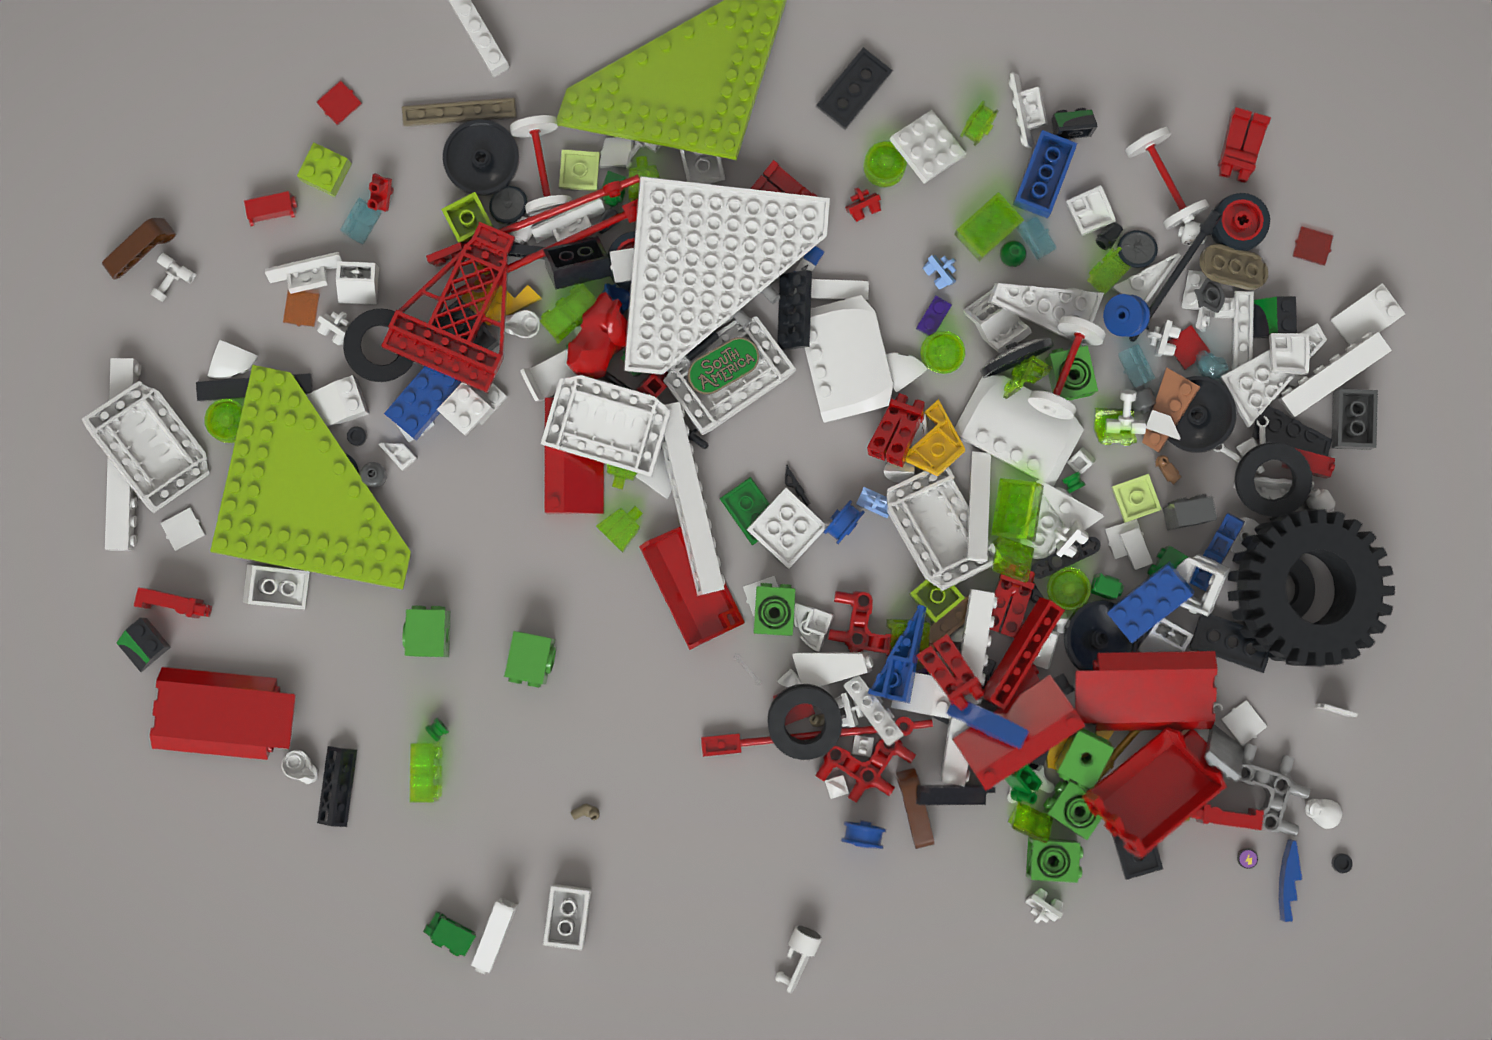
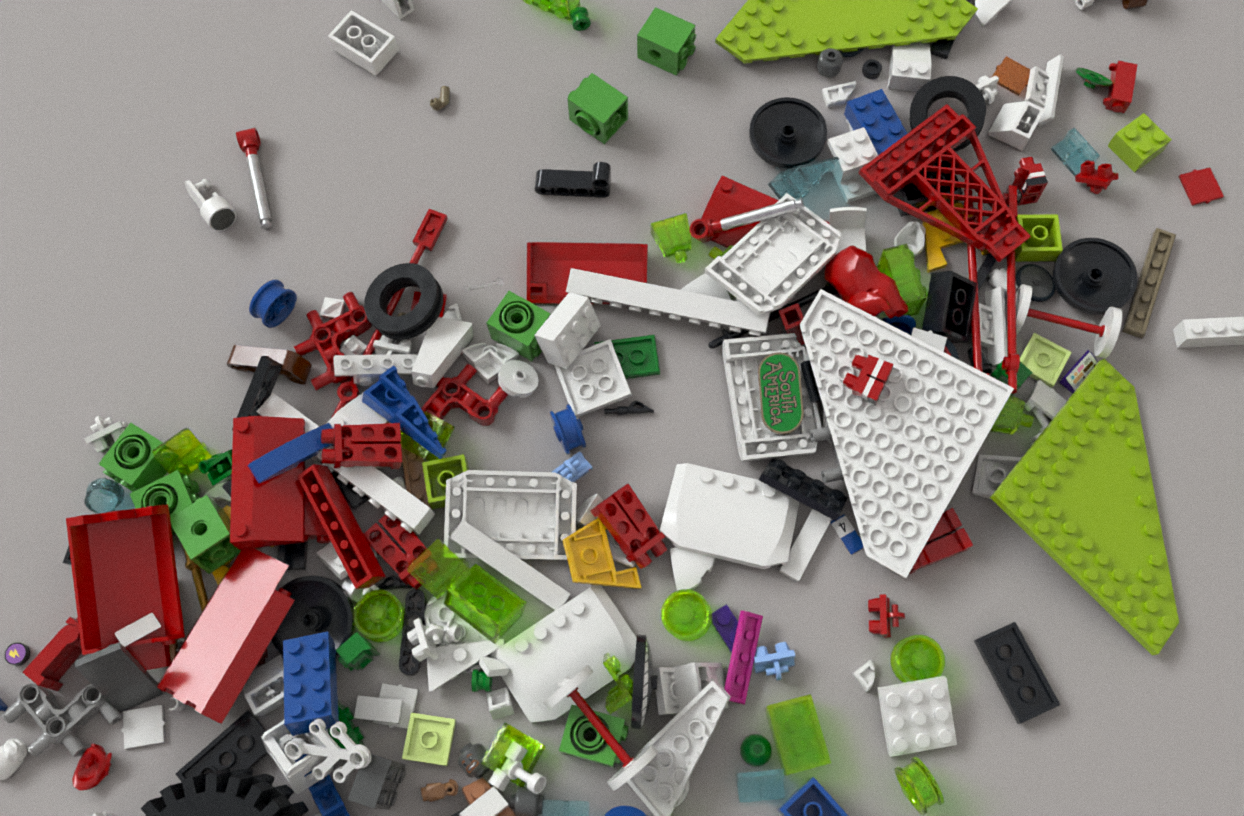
camera: 120 degrees right, 15 degrees down
(271, 234) = (1093, 78): none -> green dish
(414, 246) = (1029, 181): none -> red hips
(468, 477) = (787, 132): none -> black dish
(509, 442) = (800, 178): none -> clear light blue slope
(575, 137) = (1079, 372): none -> slope
(598, 495) = (713, 227): none -> flat silver piece
(612, 642) = (575, 183): none -> black beam
(687, 292) = (871, 378): none -> red hips
(720, 961) = (249, 143): none -> flat silver piece
(760, 566) = (567, 330): none -> white brick
(826, 594) = (511, 383): none -> white plate
(914, 198) = (866, 675): none -> white tile
(952, 294) = (743, 656): none -> dark pink tile
(1051, 523) = (453, 632): none -> white plate
(1060, 477) = (493, 667): none -> white tile
(1095, 870) = (104, 495): none -> clear light blue hair
(1133, 455) = (471, 760): none -> dark grey head
(1183, 762) = (137, 629): none -> white sticker
(1186, 529) = (357, 755): none -> white plant
(1294, 740) = (92, 768): none -> red hat

